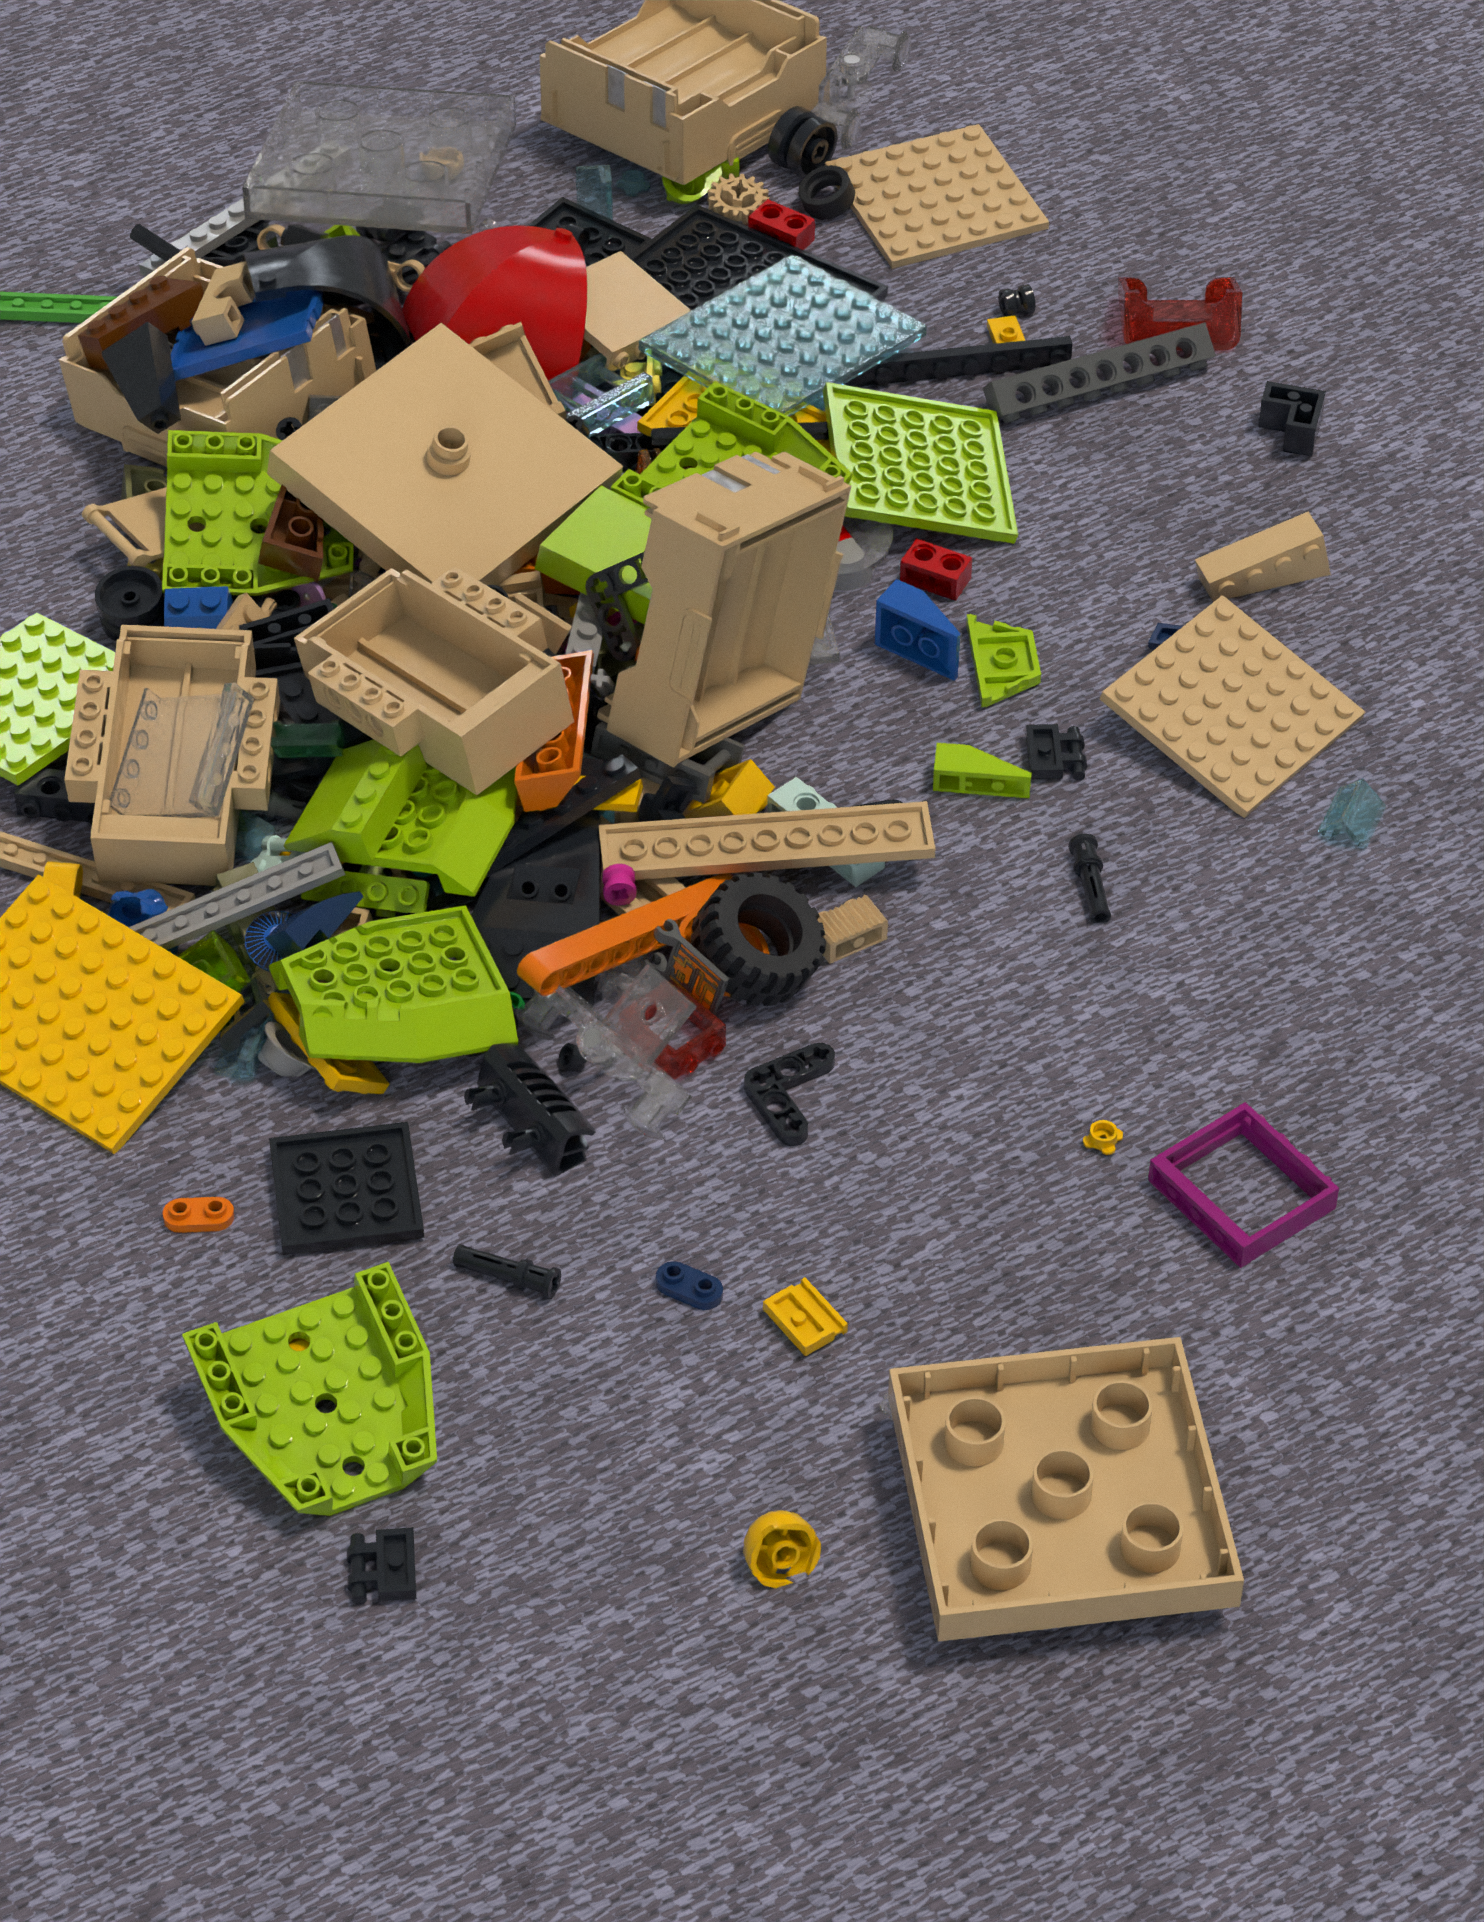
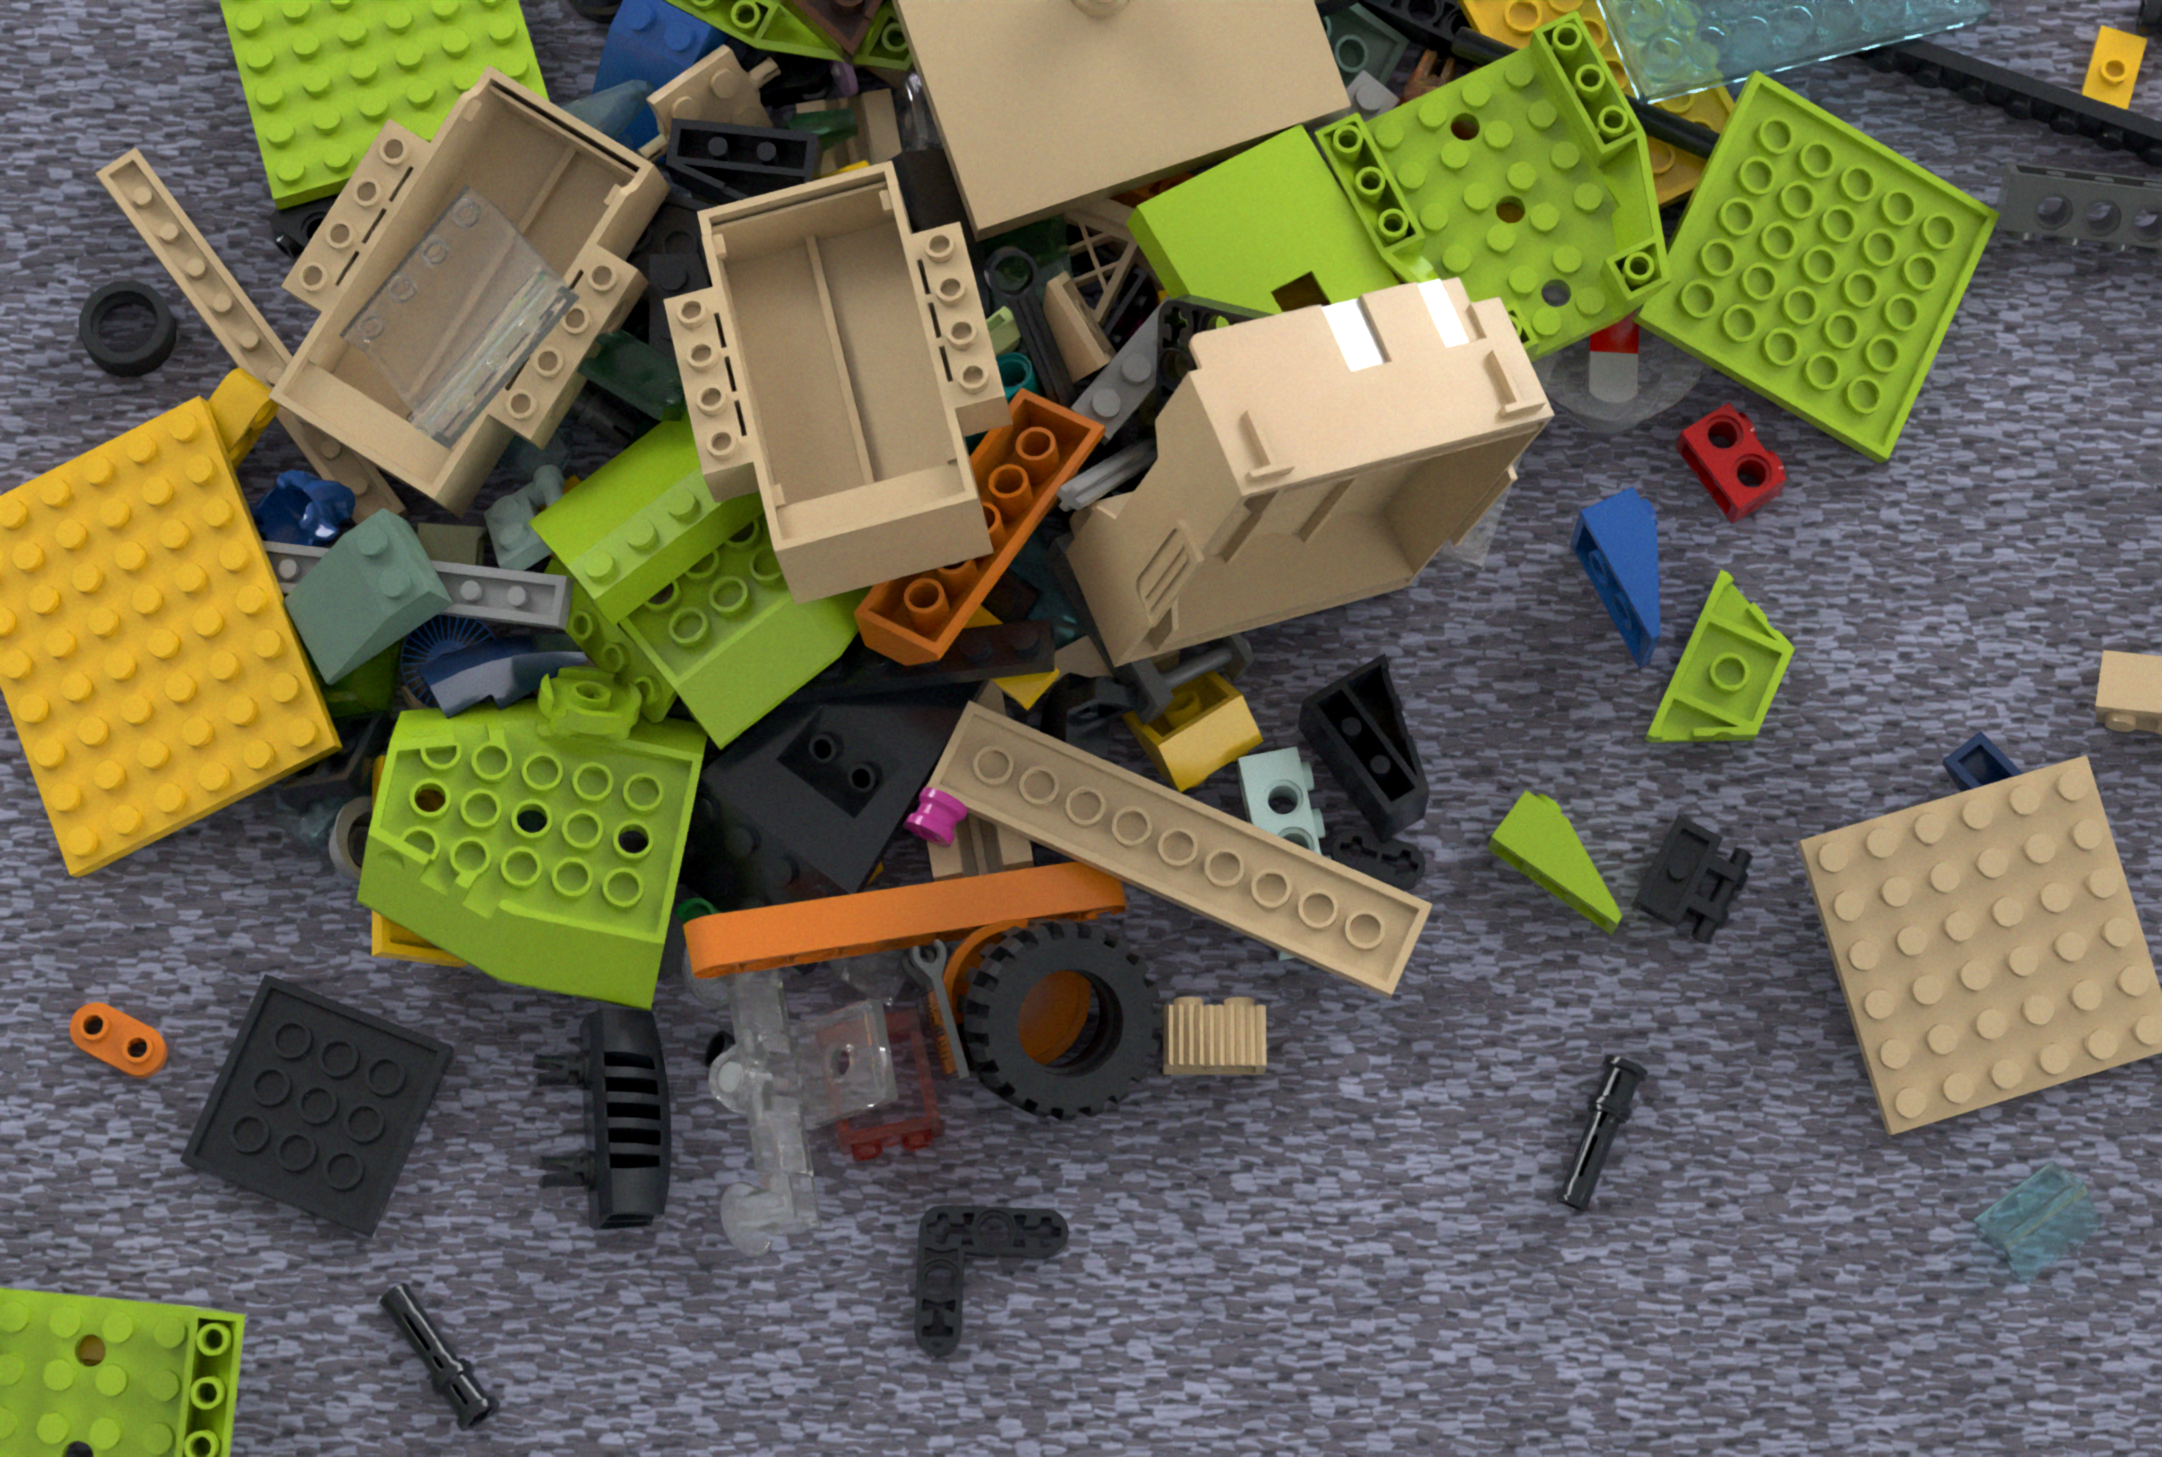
camera: 30 degrees right, 25 degrees up
(212, 911) = (365, 595): none -> sand green slope
(381, 908) = (589, 703): none -> lime plate
(836, 763) = (1367, 746): none -> black wedge

